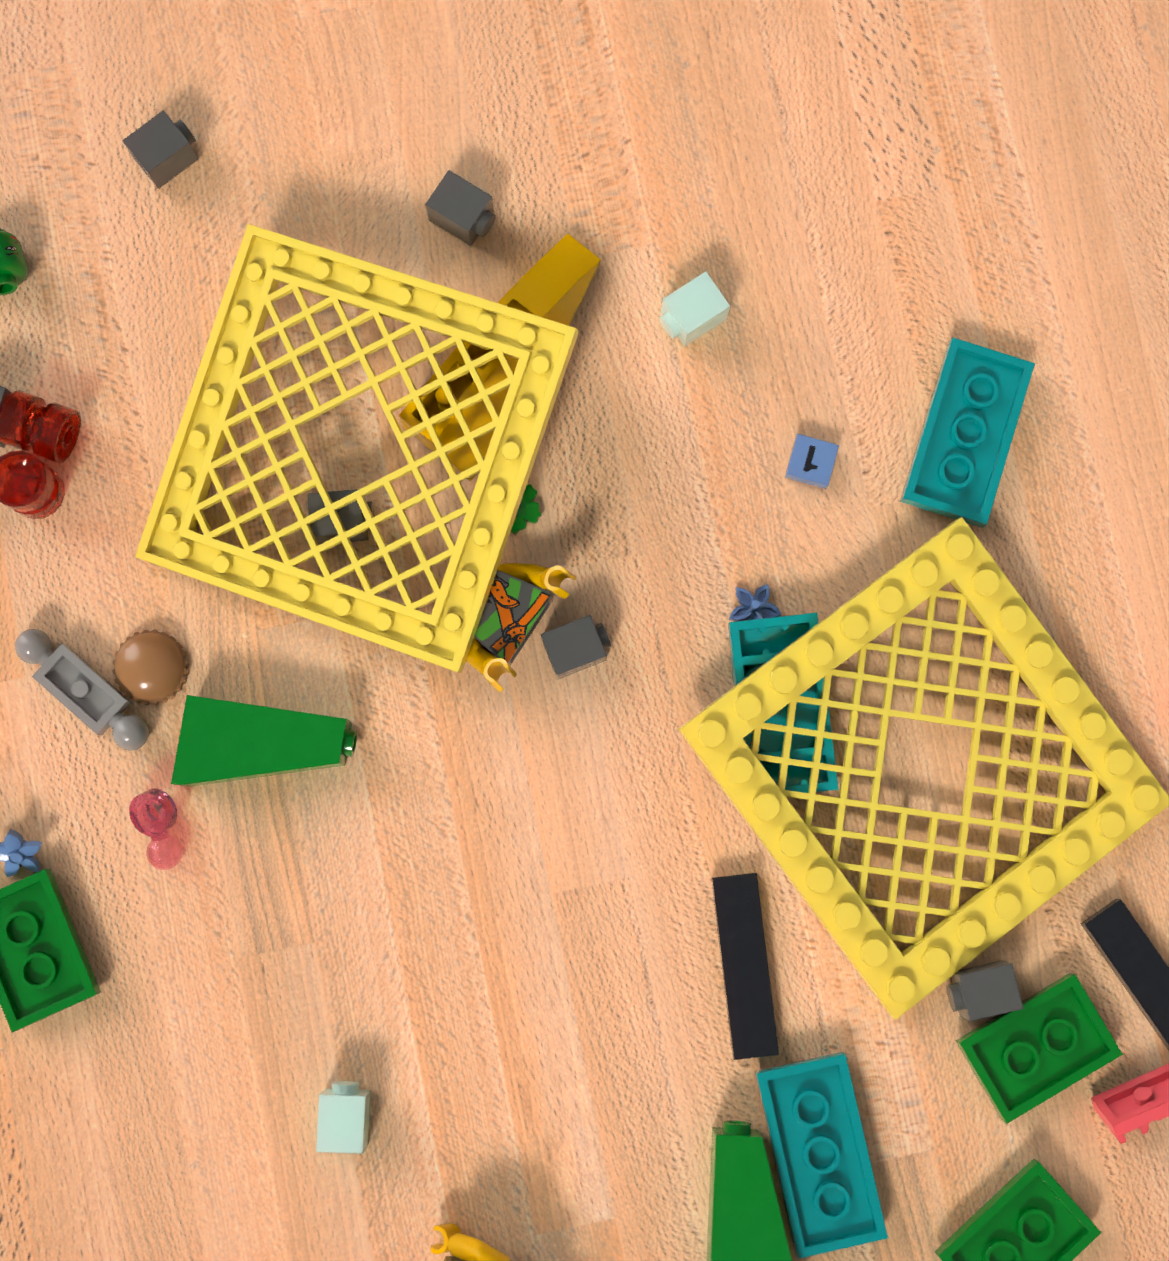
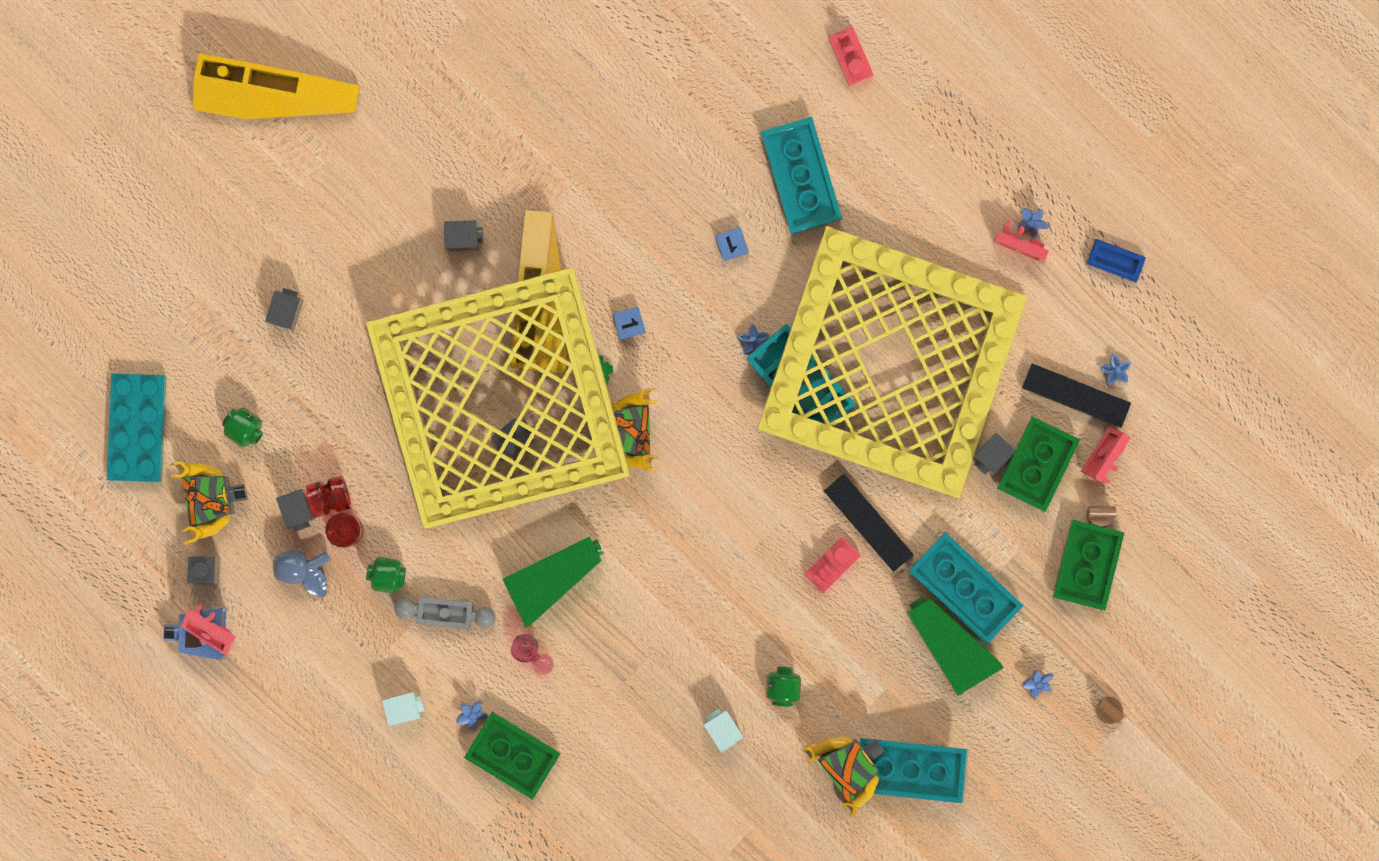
camera: 30 degrees left, 5 degrees up
(39, 583) = (386, 575): none -> green head
(150, 667) = (469, 578): medium nougat hat -> none
(469, 1117) = (783, 687): none -> green head
(575, 646) = (677, 422): dark grey brick -> none
(602, 472) = (629, 323): none -> medium blue tile
(655, 990) = (832, 564): none -> coral plate
(693, 309) = (618, 207): light aqua brick -> none
(1083, 1180) = (1101, 513): none -> medium nougat plate
(1136, 323) = (850, 56): none -> coral plate

